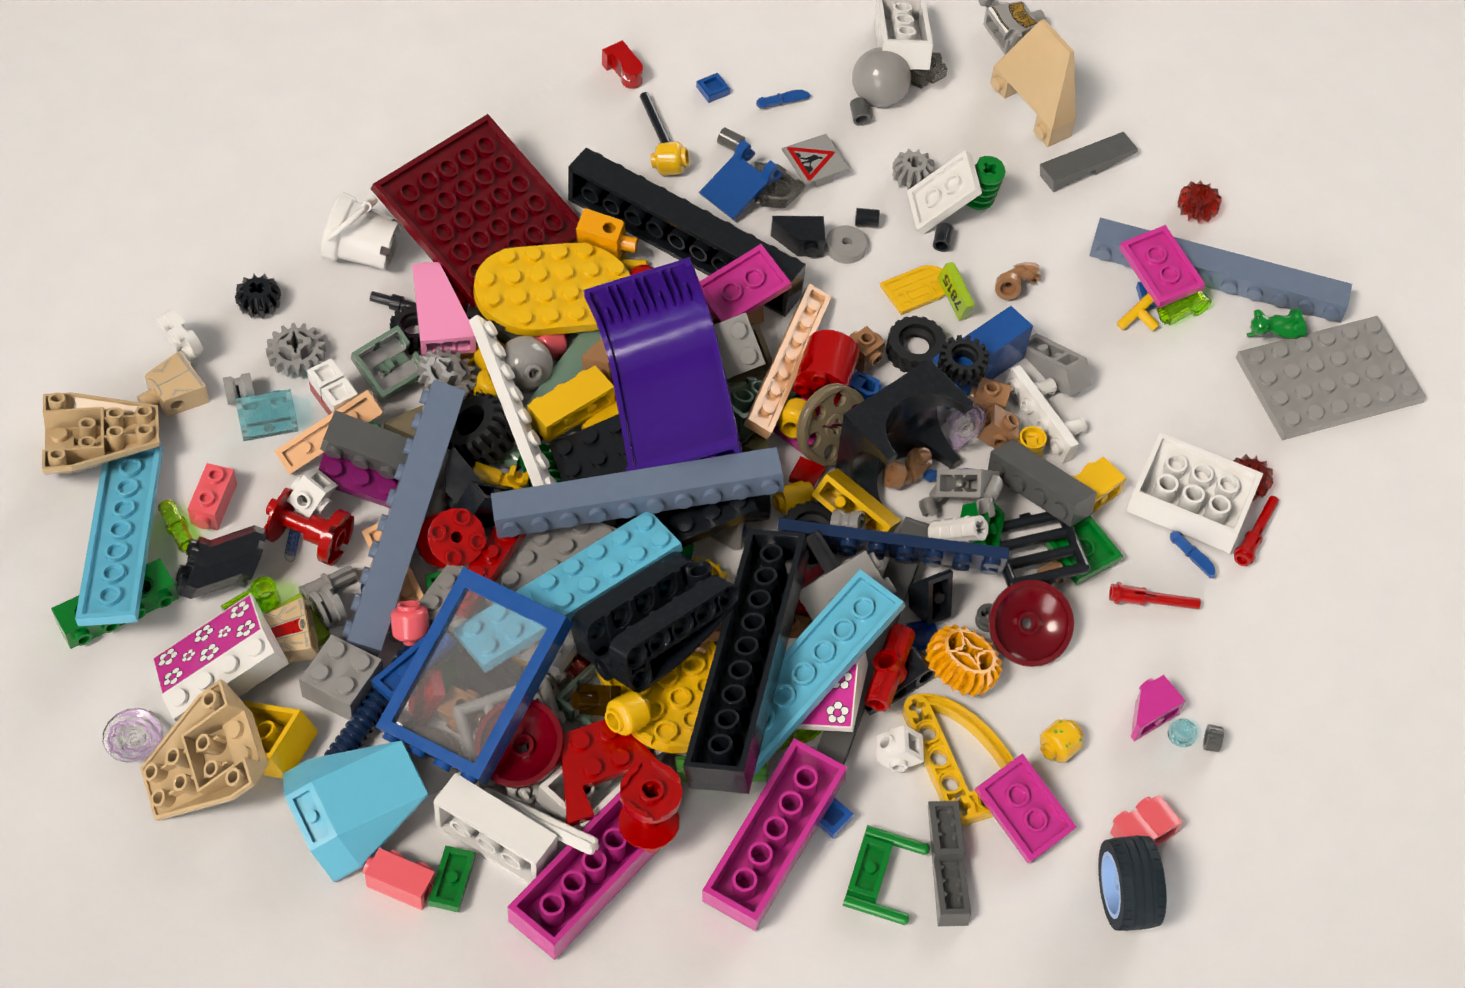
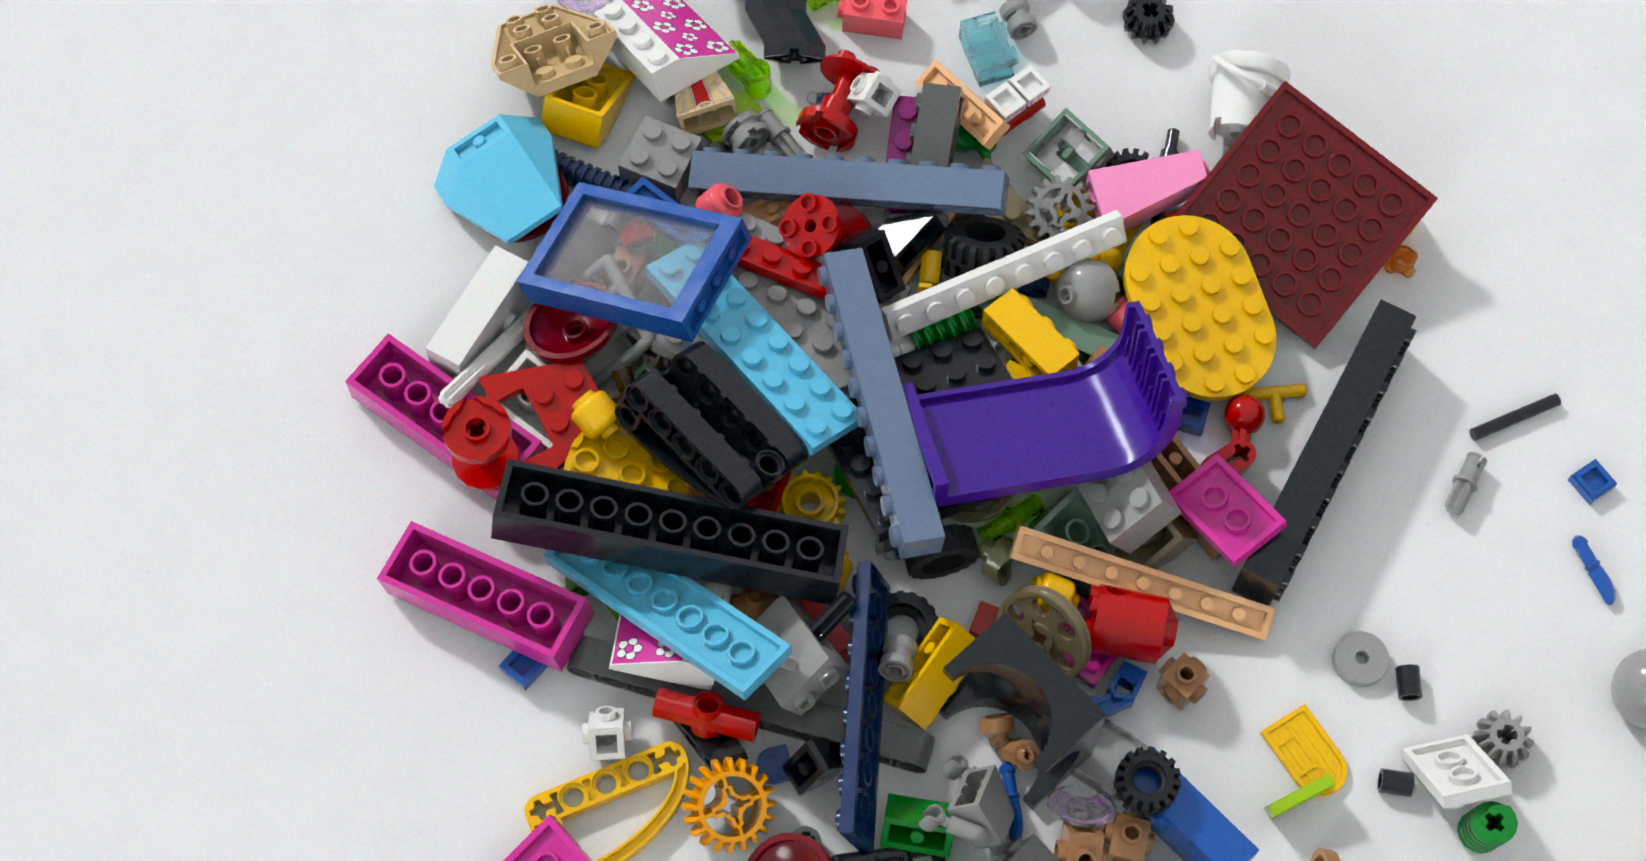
camera: 90 degrees right, 10 degrees up
(282, 349) = (1077, 67): light grey gear -> none
(399, 878) = (434, 242): coral brick -> none
(451, 879) = (433, 289): green plate -> none
(605, 233) = (1294, 358): light orange torso -> none
(624, 63) = (1594, 374): red leg -> none
(670, 158) = (1450, 433): yellow head -> none
(706, 156) = (1465, 483): none -> light grey axle
(729, 138) = (1503, 506): dark grey hinge -> none
(739, 182) = (1425, 515): blue flag -> none
(779, 193) = (1435, 564): clear smoke plate -> none
(792, 495) = (950, 603): yellow brick -> none
(800, 234) = (1359, 601): black slope -> none
(816, 160) = (1490, 611): light grey piece -> none
(860, 111) = (1594, 668): dark grey hinge -> none
(870, 870) = (457, 709): green plate -> none
(913, 327) = (1229, 735): black tyre -> none
(948, 864) = (470, 794): dark grey slope -> none
(960, 529) = (905, 791): white axle -> none

